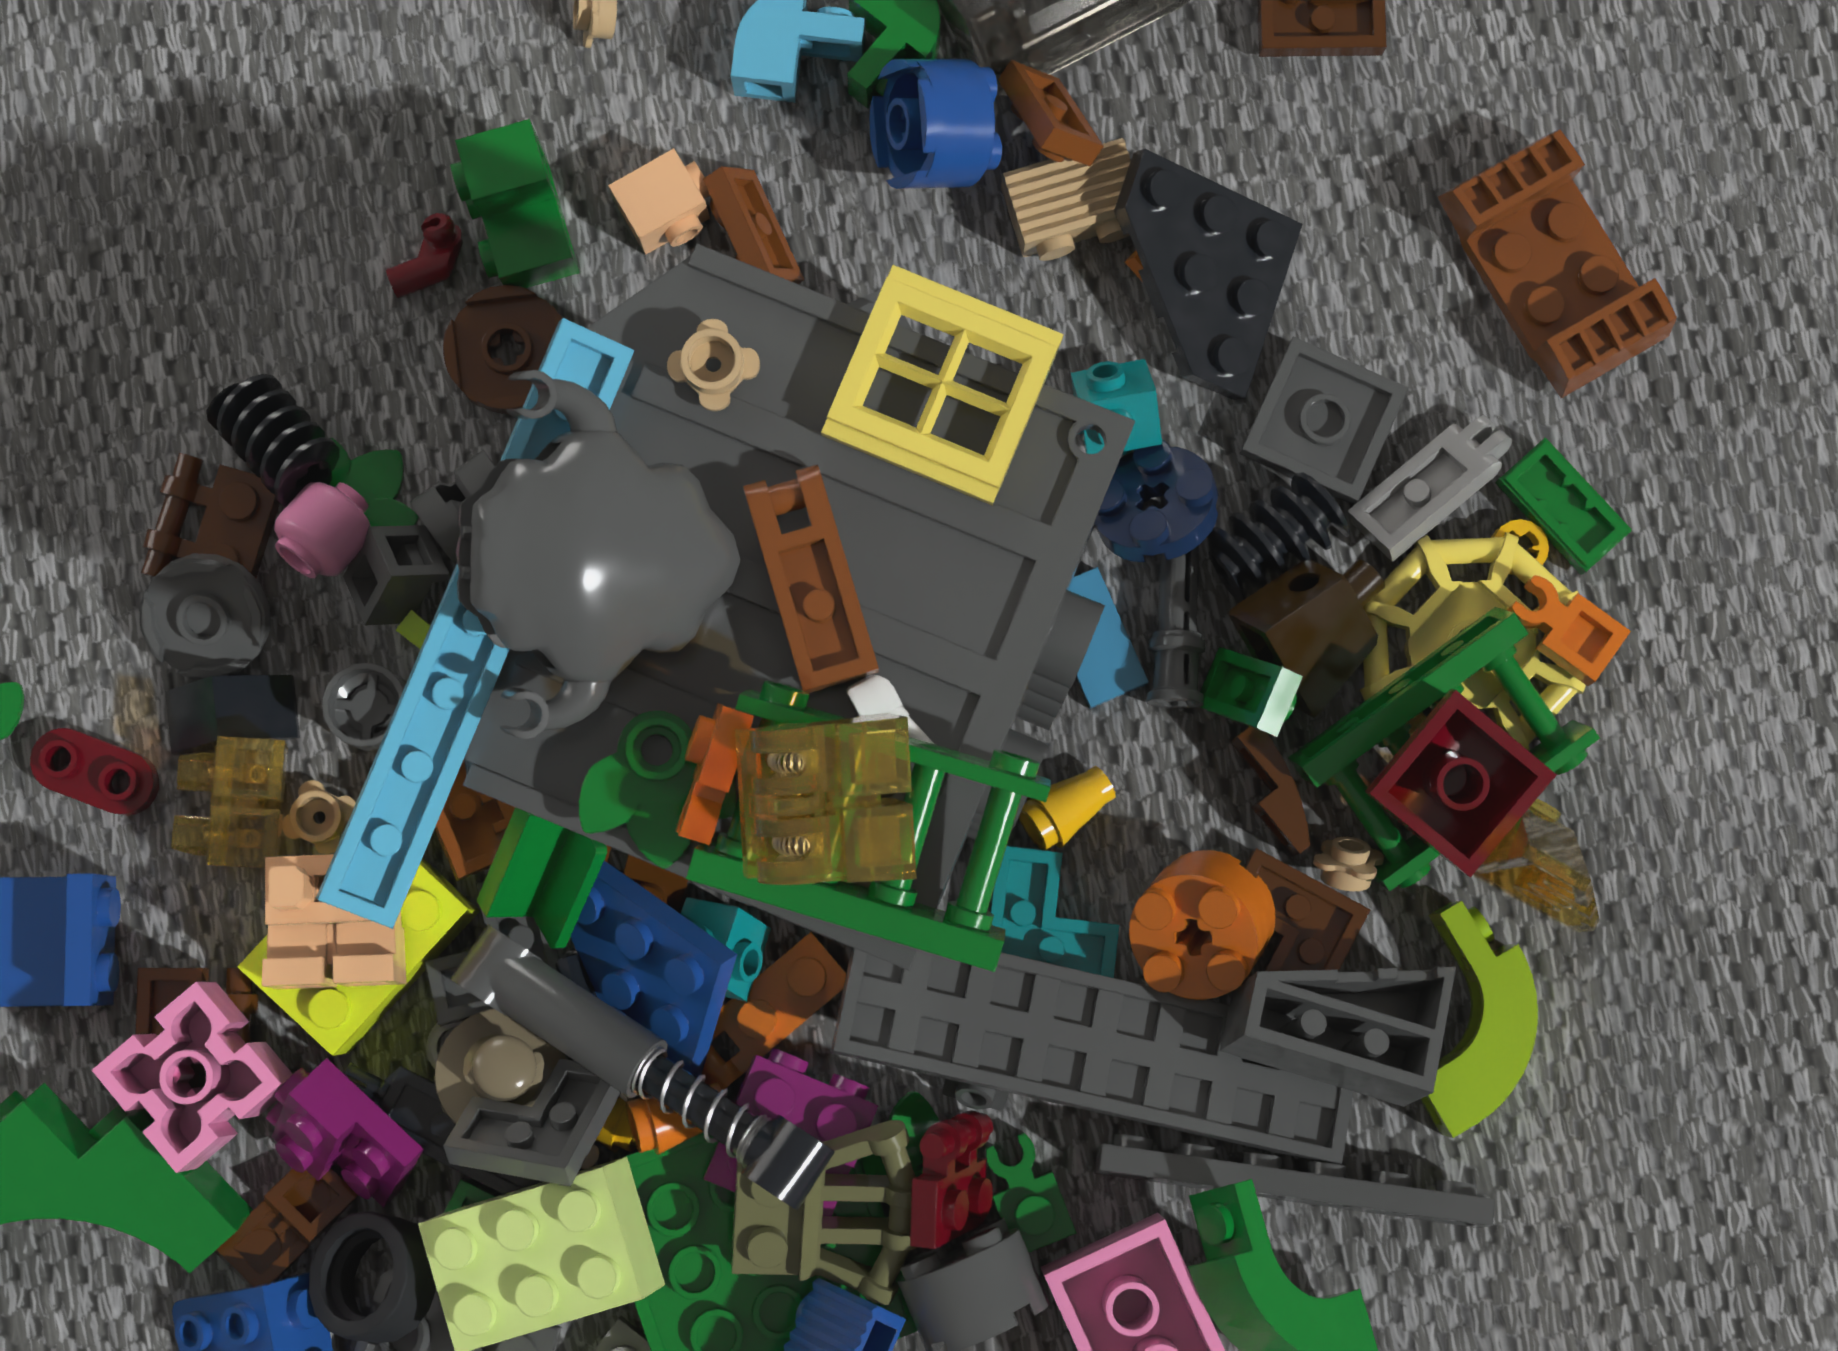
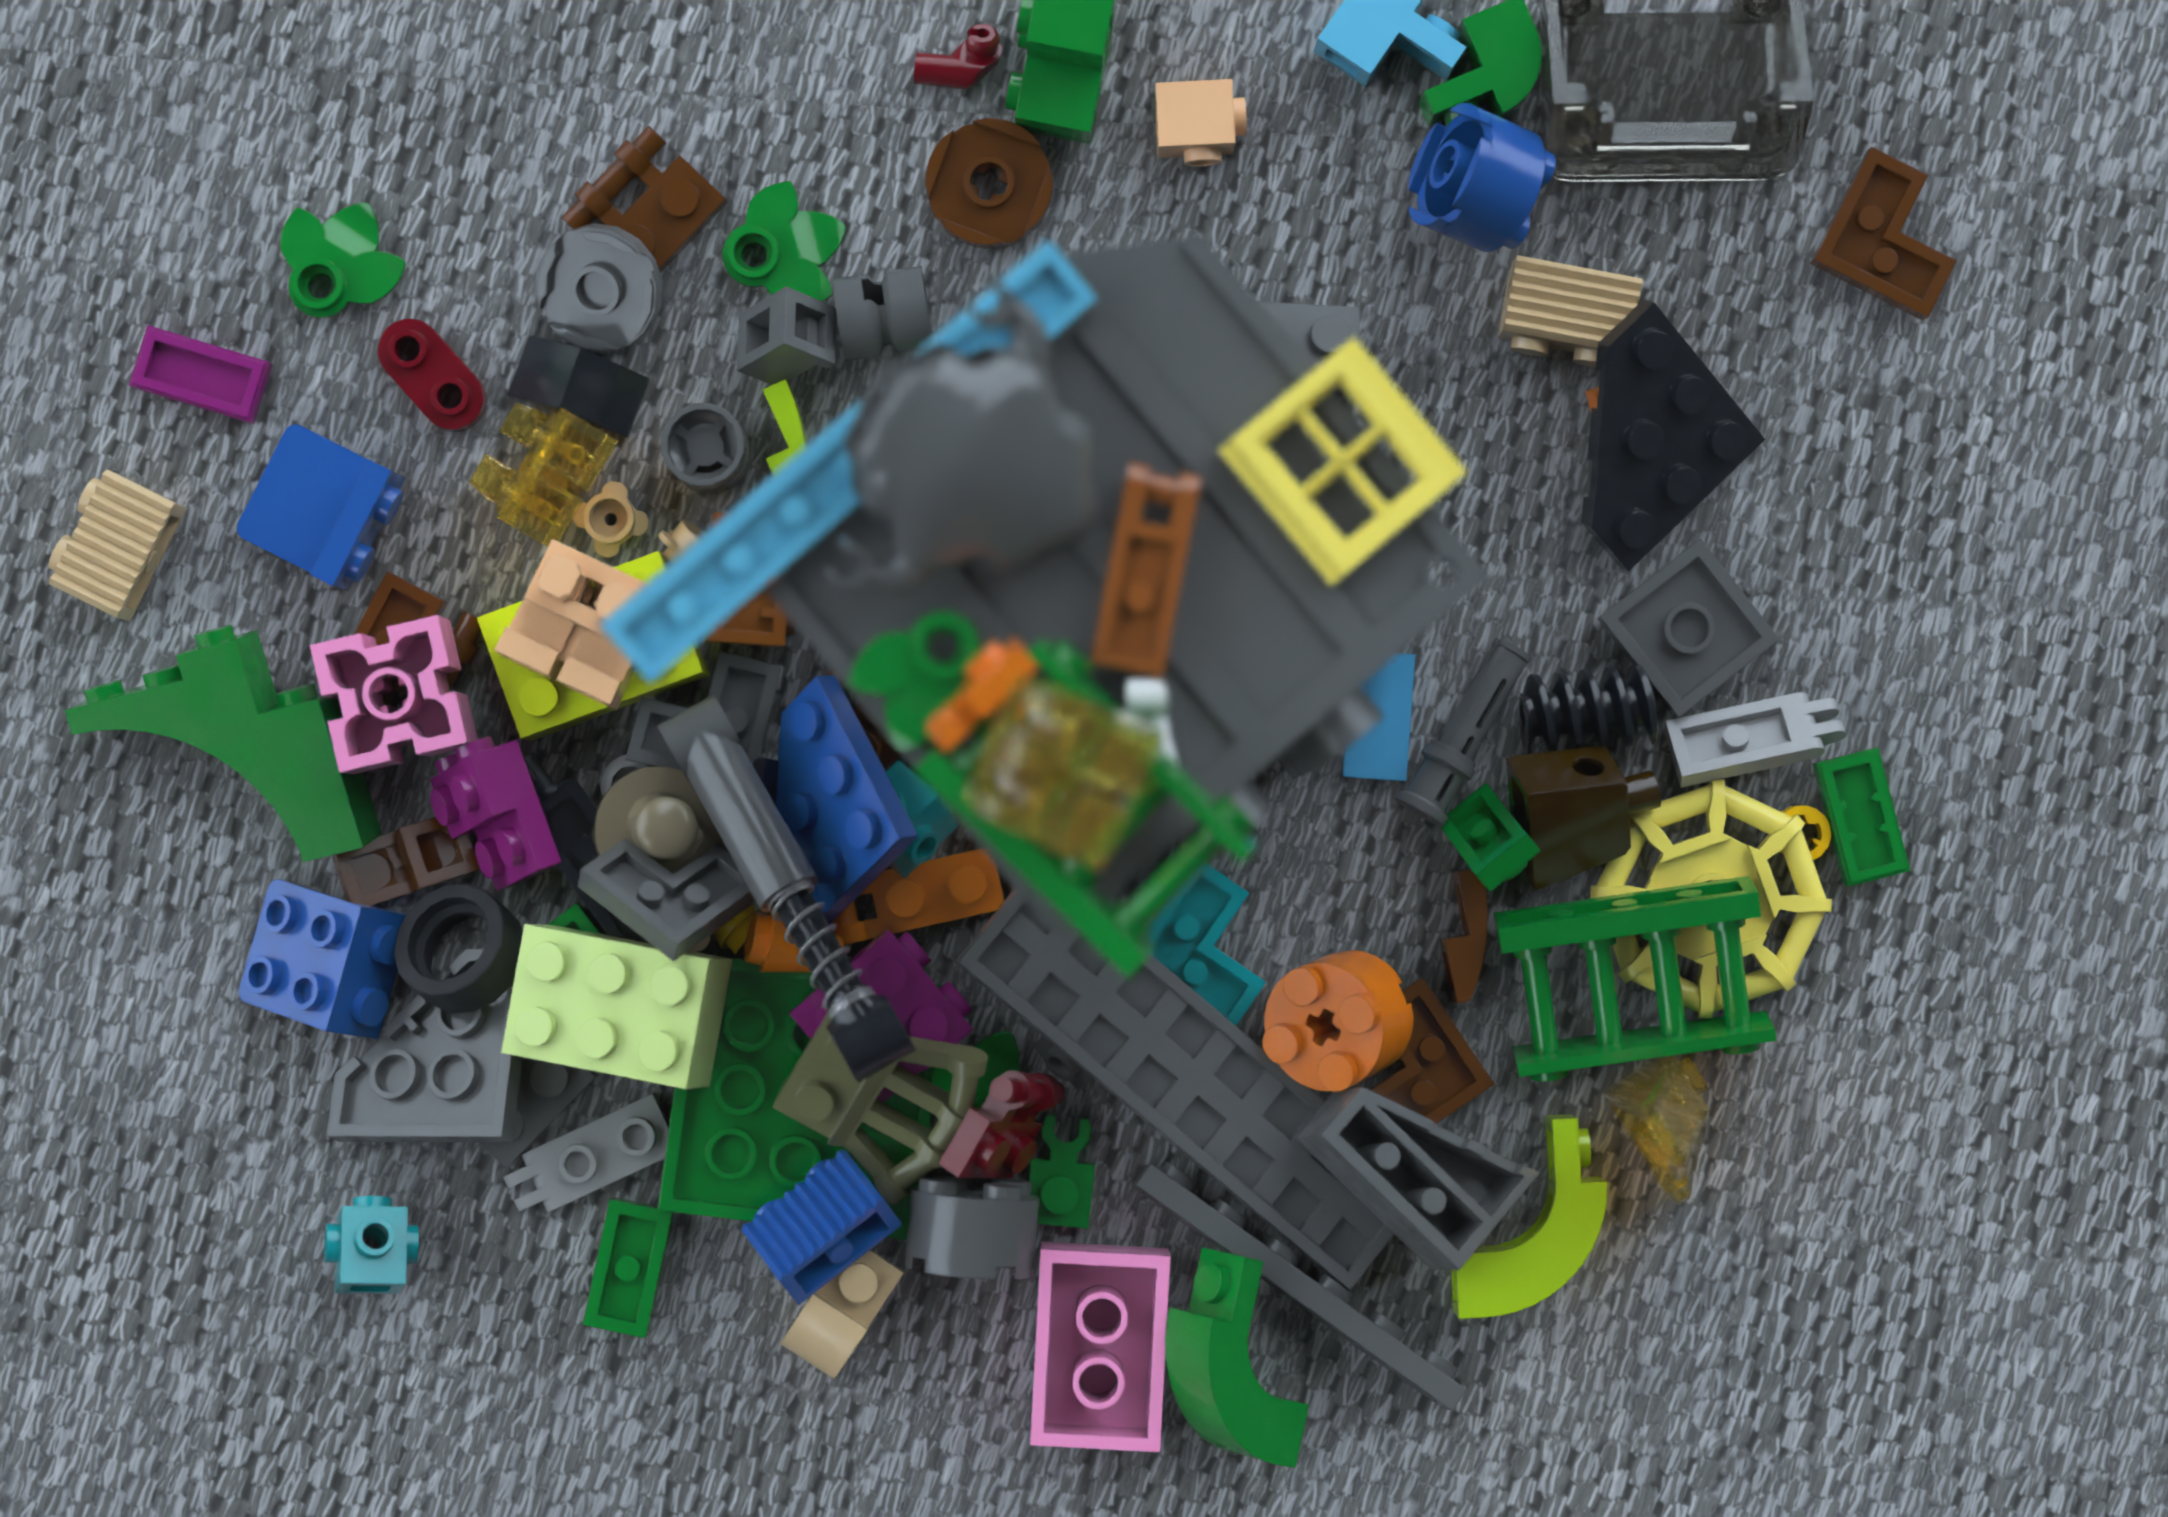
camera: 25 degrees right, 5 degrees up
(273, 436) = (741, 161): black piece -> none
(322, 529) = (743, 266): bright pink head -> none
(542, 875) = (781, 679): green panel -> none
(708, 343) = (1163, 324): tan plate -> none
(750, 222) = (1266, 188): dark orange plate -> none
(1050, 114) = (1588, 223): dark orange plate -> none
(1067, 808) = (1278, 855): yellow cone -> none
(1126, 391) = (1504, 520): teal brick -> none
(1175, 528) = (1530, 629): dark blue plate -> none
(1348, 863) = (1496, 1033): tan plate -> none
(1460, 783) = (1627, 1016): dark red brick -> none
(1555, 265) = (1972, 595): dark orange plate -> none
(1576, 635) = (1807, 938): orange plate -> none

